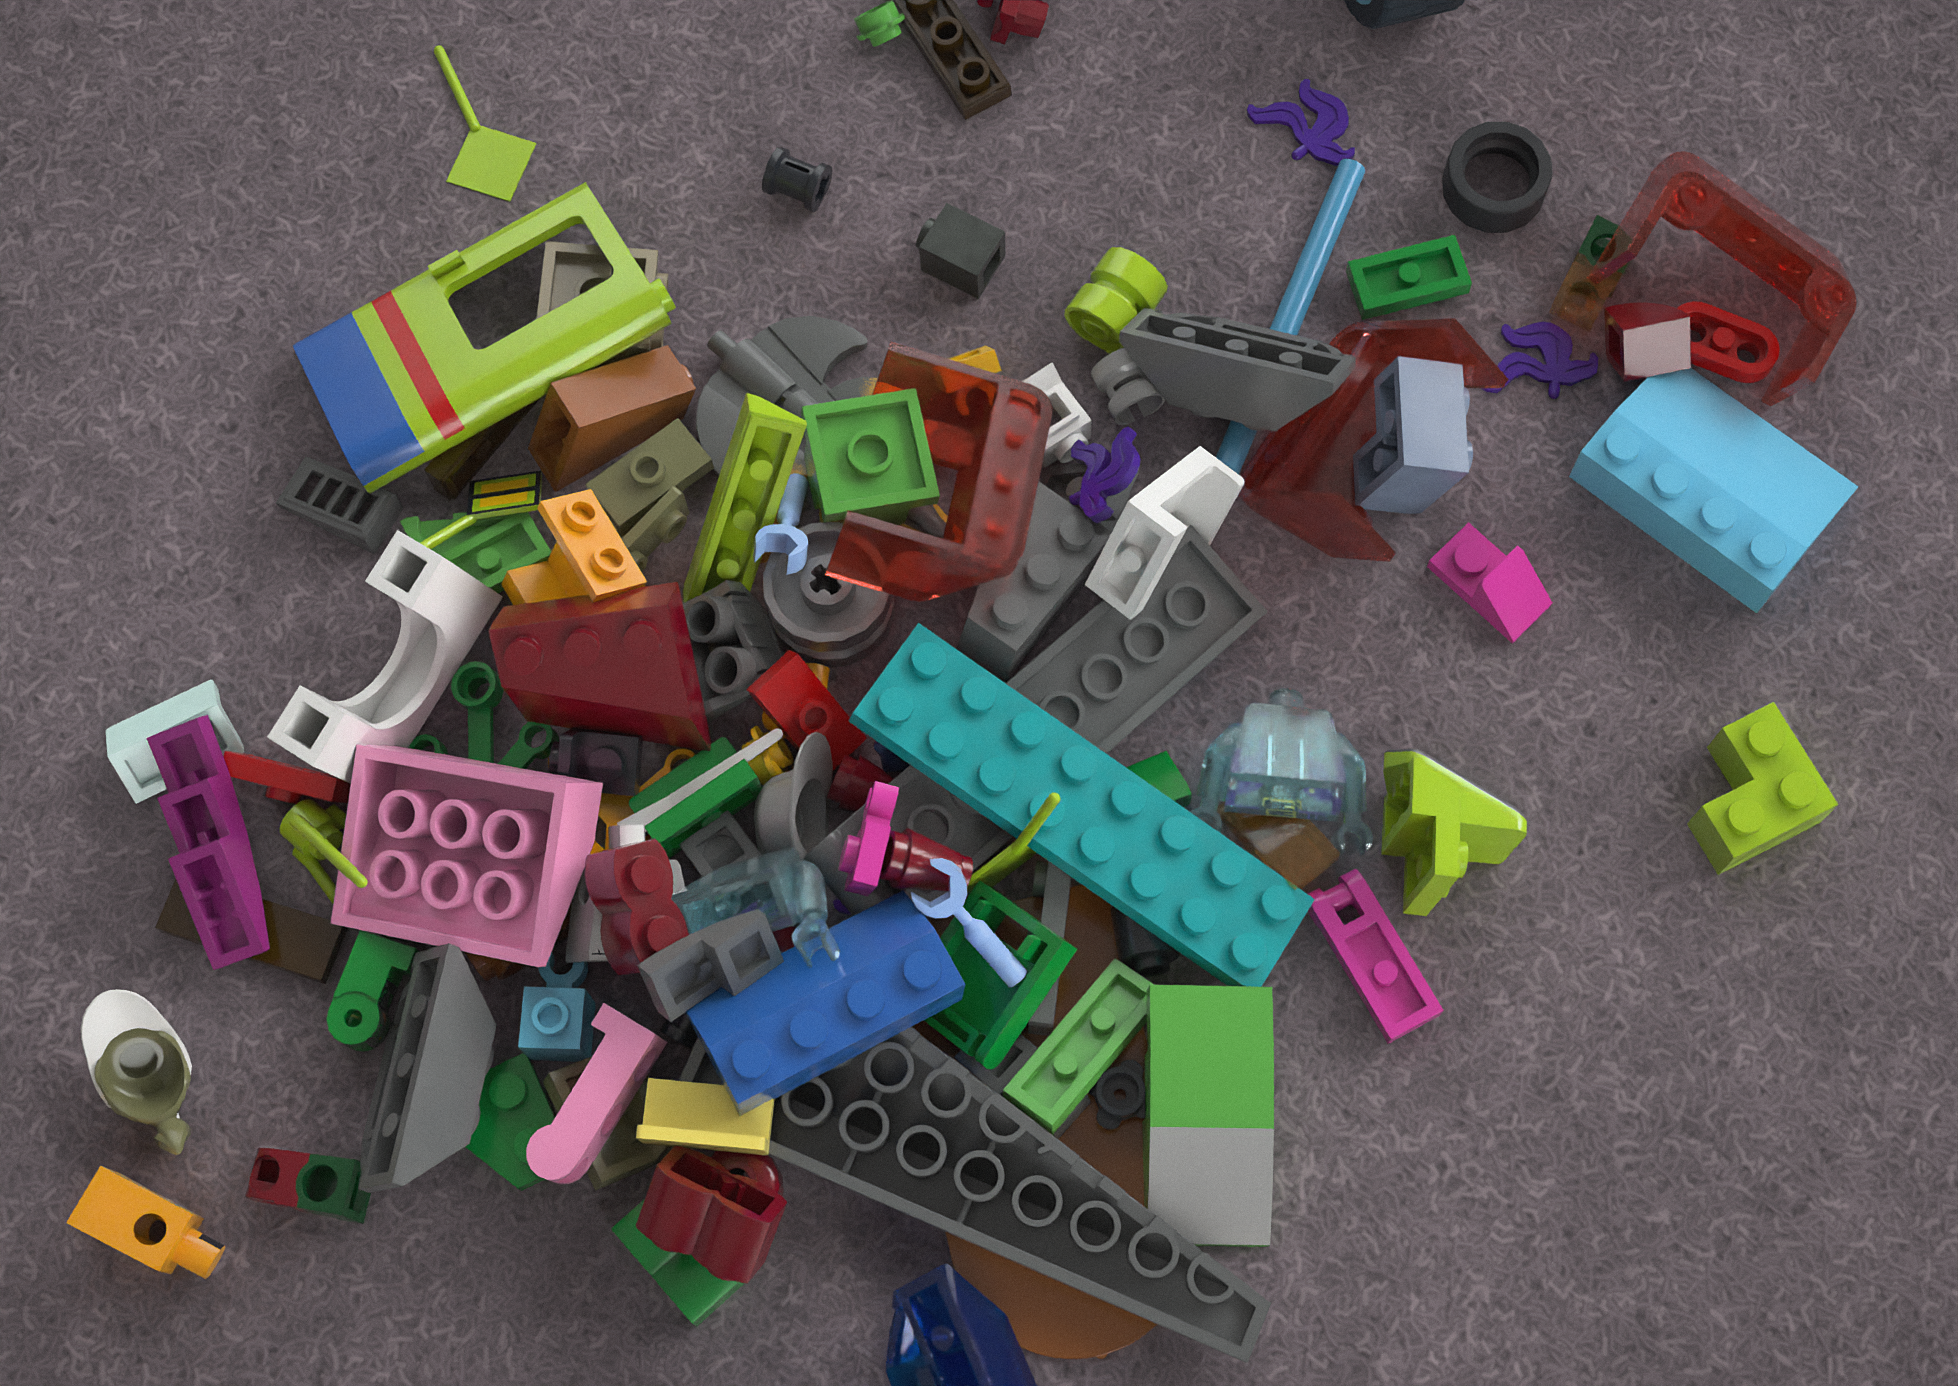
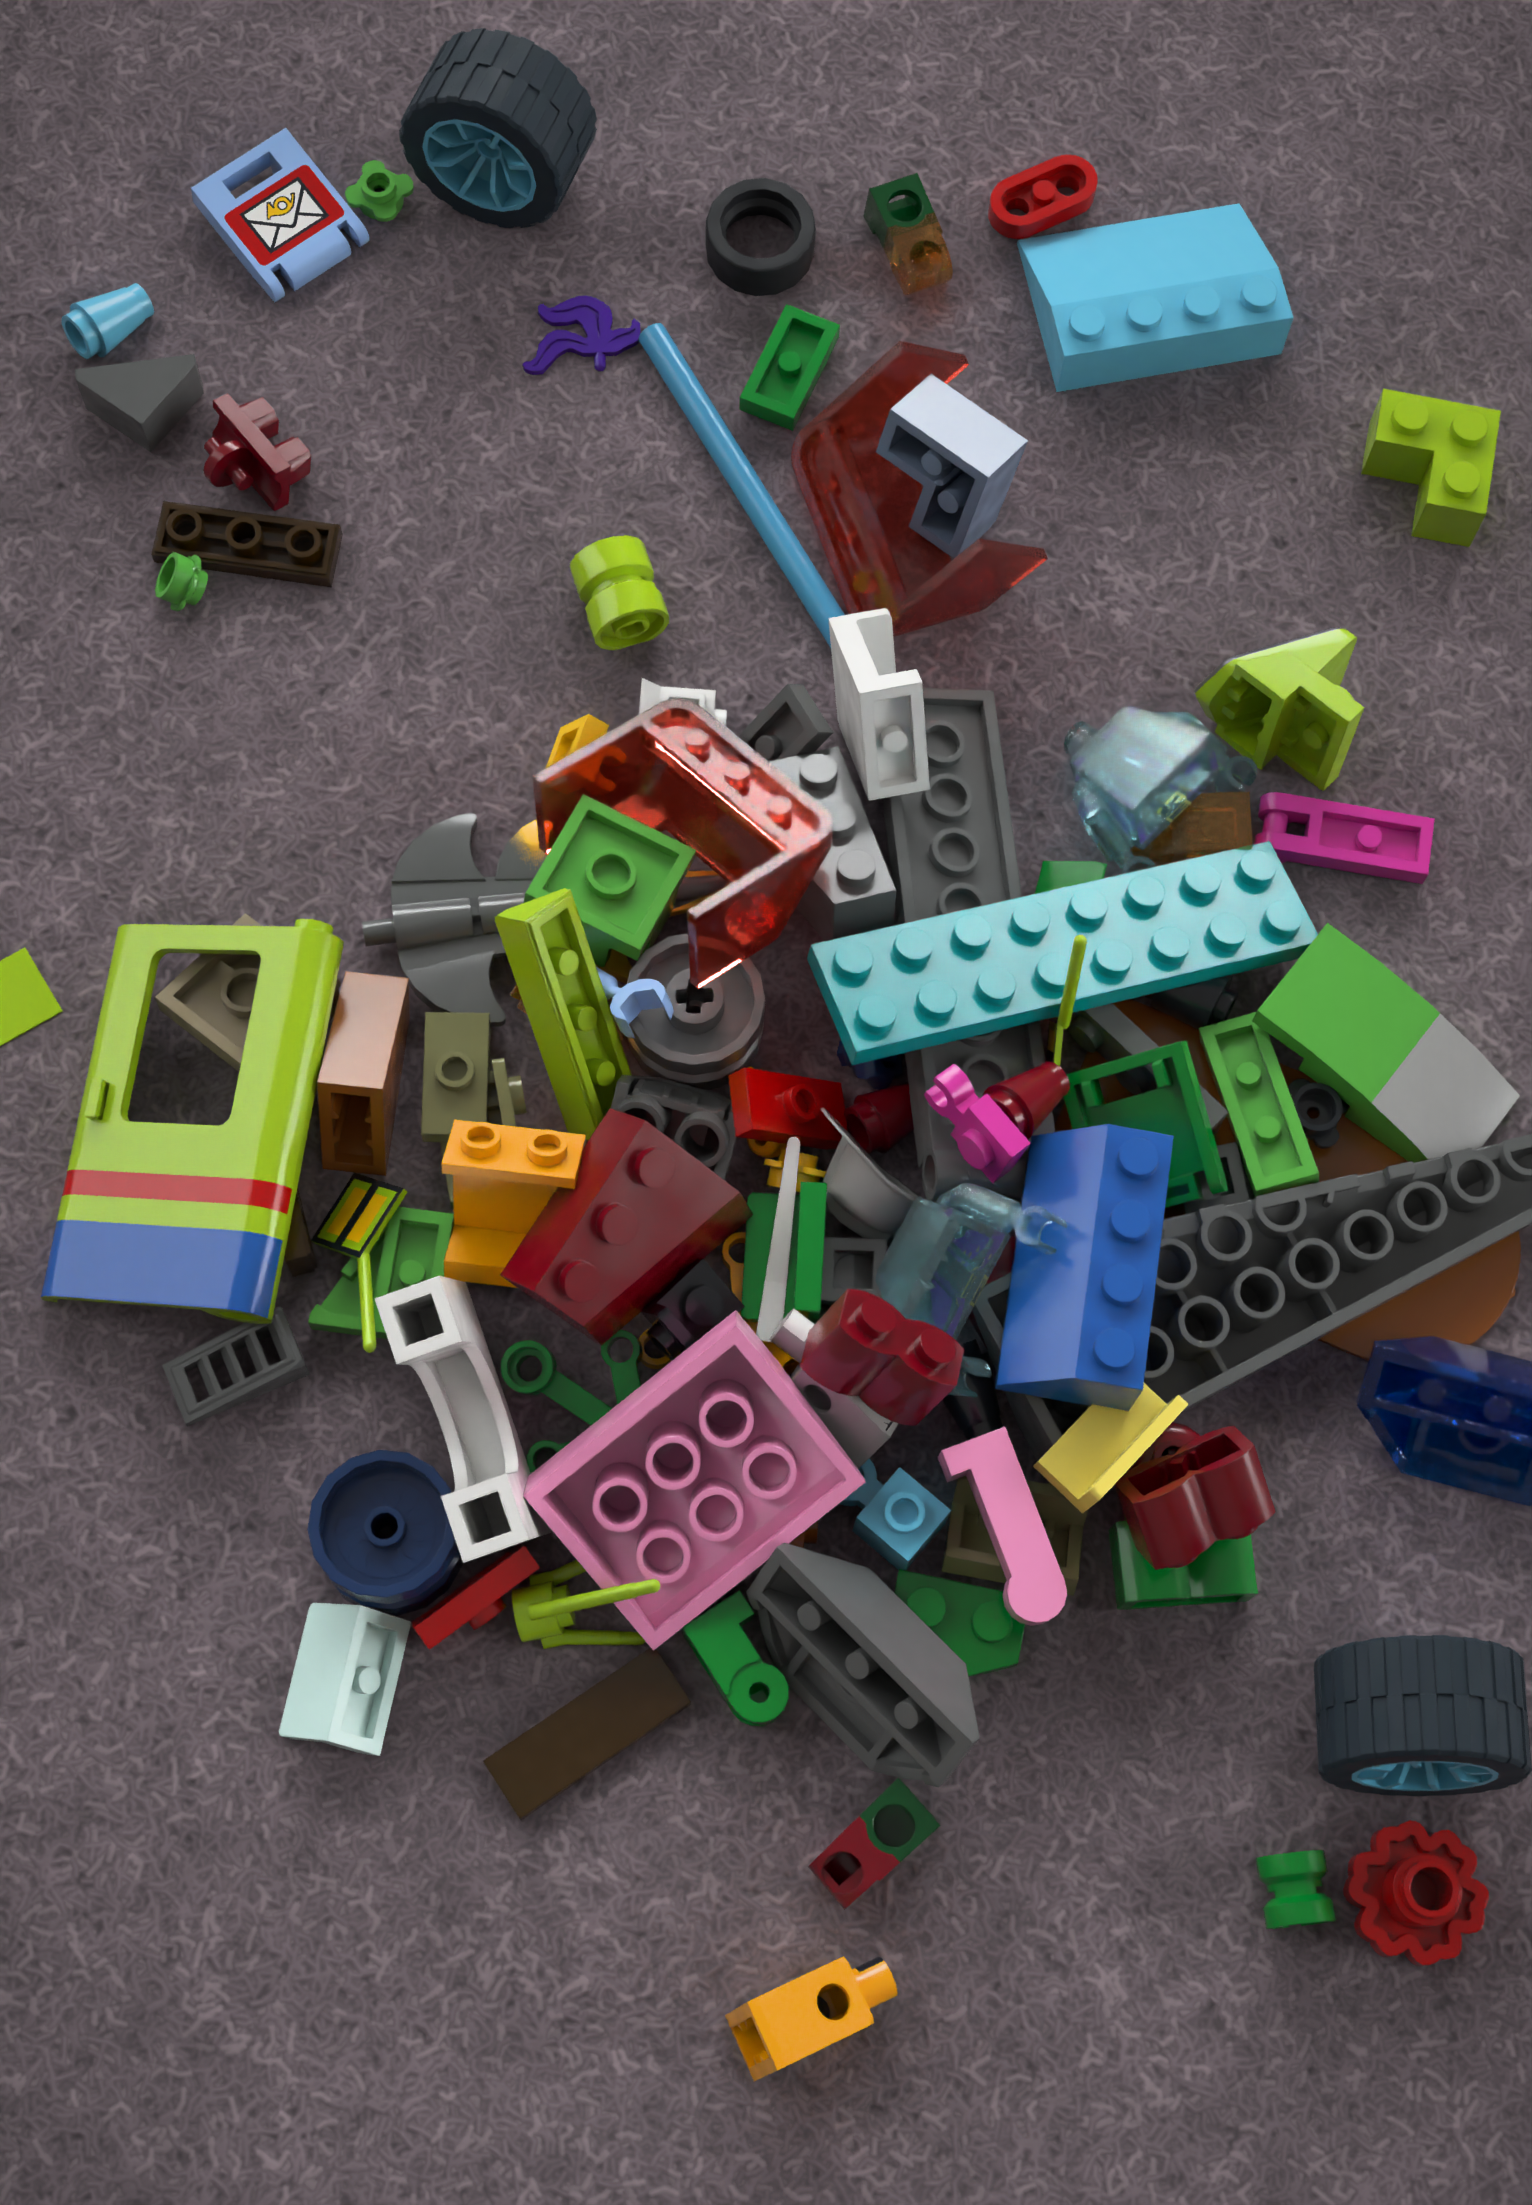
camera: 60 degrees left, 0 degrees up
(138, 1064) = (658, 1916): olive hair -> none
(213, 843) = (490, 1702): magenta slope -> none
(266, 663) = (362, 1499): none -> dark blue wheel
(721, 955) = (987, 1316): dark grey slope -> none
(796, 179) = (271, 756): black bush -> none
(961, 250) = (461, 676): pearl dark grey brick -> none
(975, 930) = (1084, 1100): light blue piece -> none
(1103, 476) = (793, 722): dark purple piece -> none
(1125, 386) = (688, 640): light grey wheel -> none
(1234, 367) = (776, 541): dark grey wedge -> none
(1493, 584) = (1101, 514): dark pink slope -> none
(1555, 348) = (943, 316): dark purple piece -> none
(1647, 339) = (1000, 242): brick -> none
(1704, 200) = (918, 111): clear red windscreen -> none

